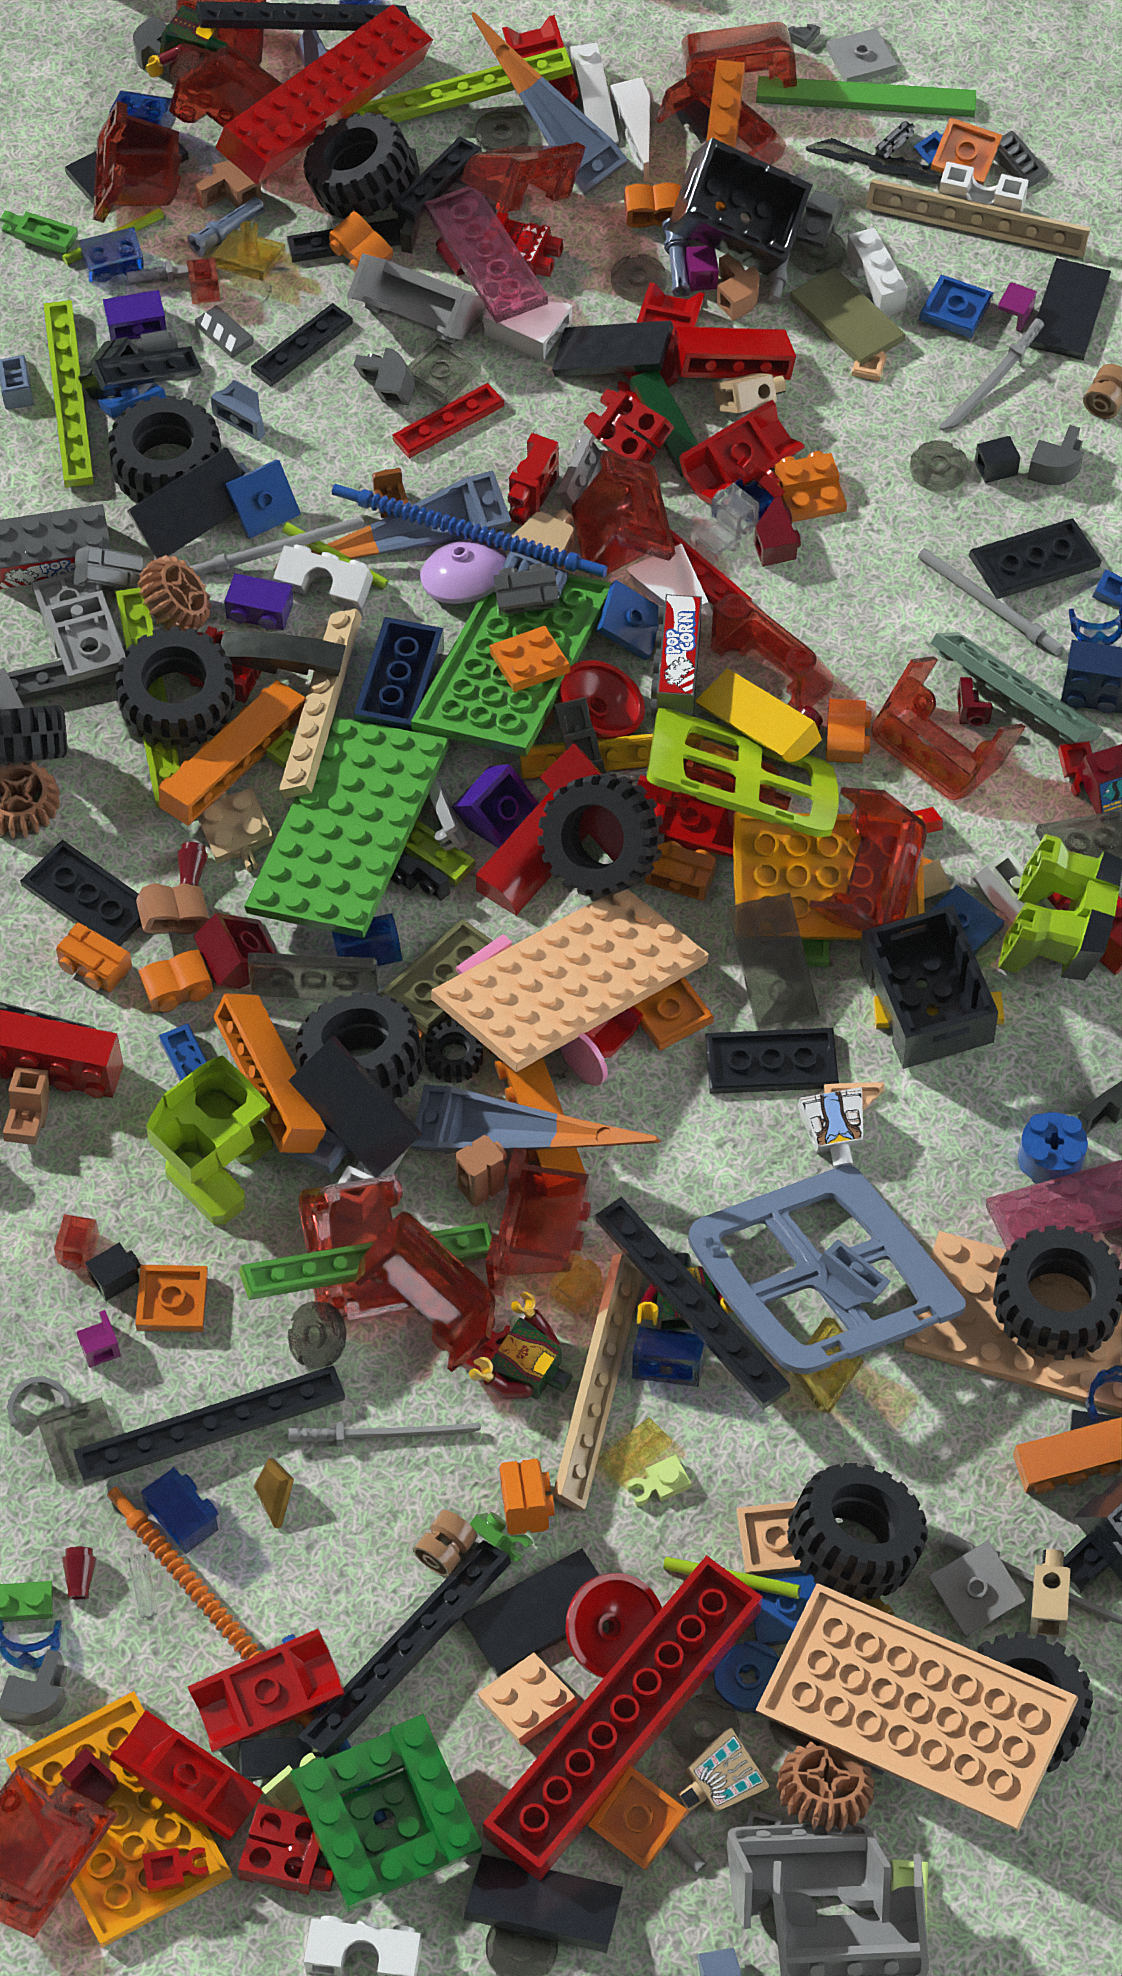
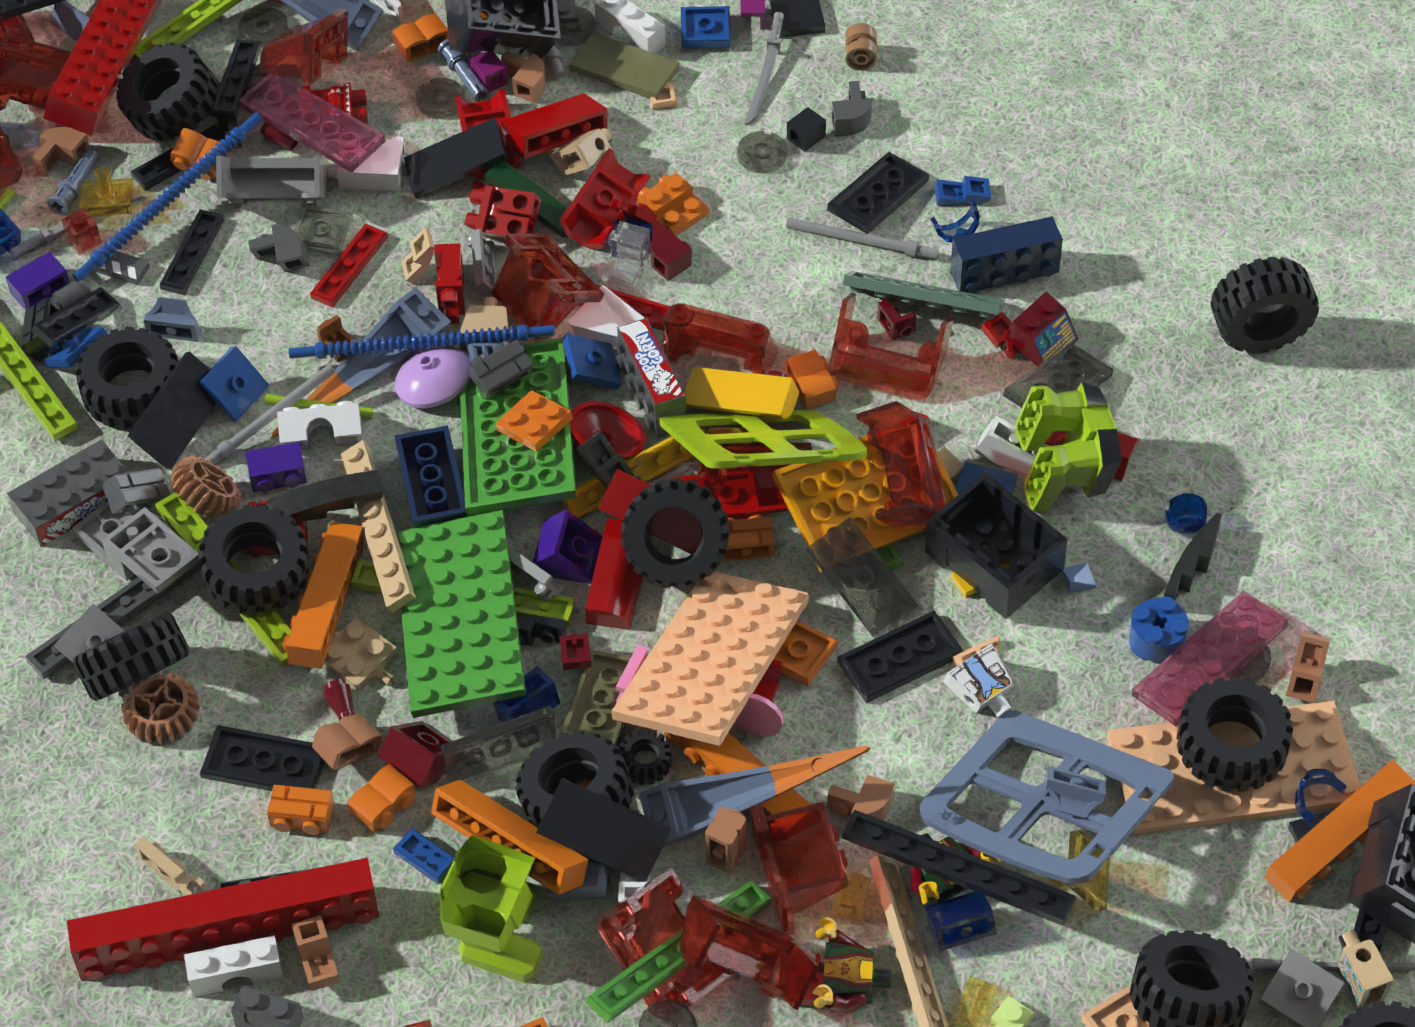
camera: 25 degrees left, 5 degrees down
(203, 315) = (98, 258): none -> blue hose
(443, 914) = (575, 651): none -> dark red bracket
(515, 442) = (420, 256): none -> tan slope
(650, 1198) = (874, 798): none -> nougat brick
(1005, 1058) = (1078, 578): none -> medium blue slope

